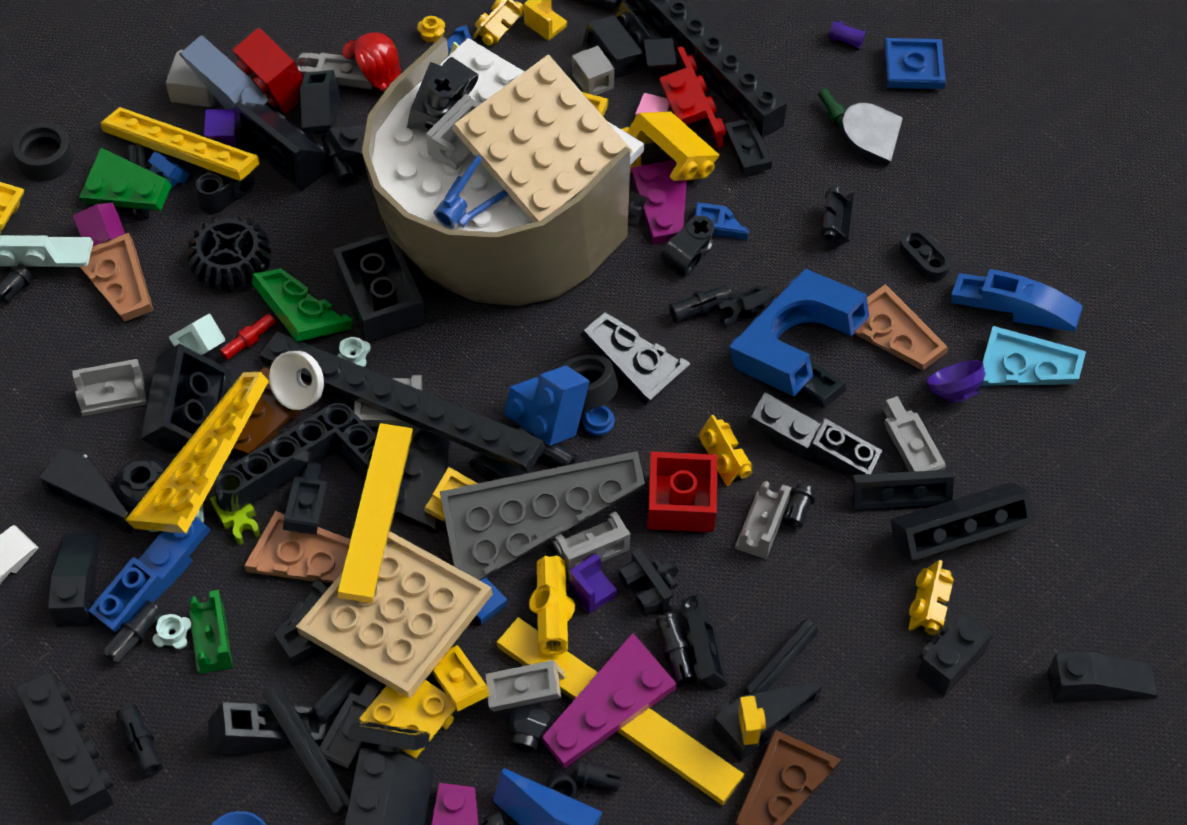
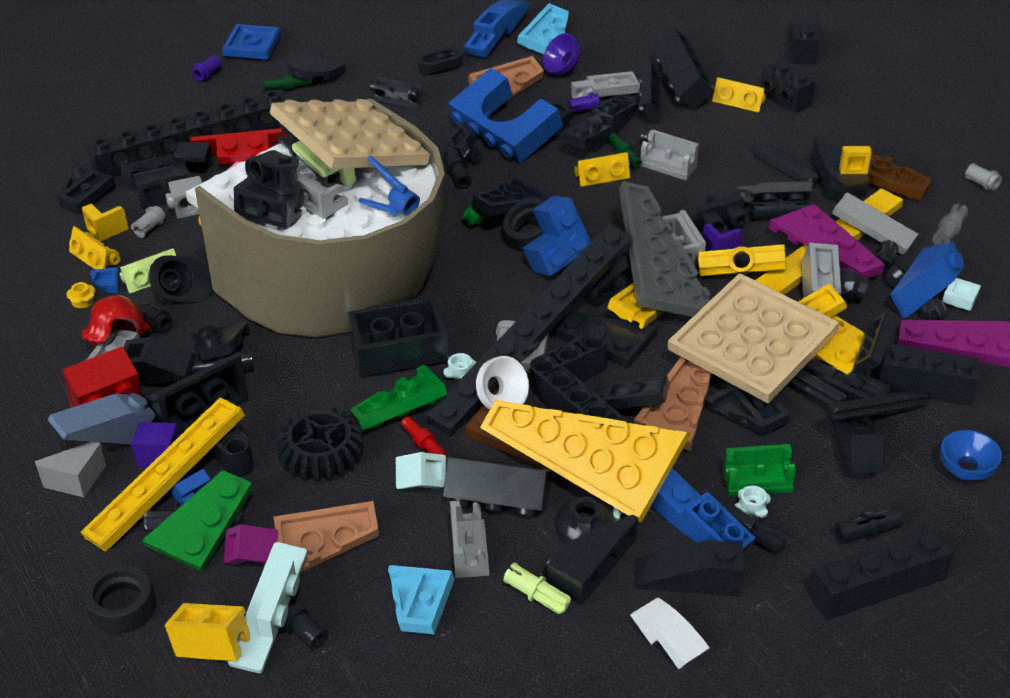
camera: 80 degrees left, 15 degrees down
(43, 360) = (420, 596): none -> medium azure wing
(61, 438) = (537, 588): none -> yellowish green axle
(375, 514) = (657, 337): yellow tile -> none
(558, 52) = (153, 217): none -> light grey pin
(655, 760) = (874, 222): none -> light grey tile
(682, 492) = (647, 171): red brick -> none
(774, 472) = (622, 147): none -> dark green bar
(869, 424) = (584, 103): none -> dark purple pin

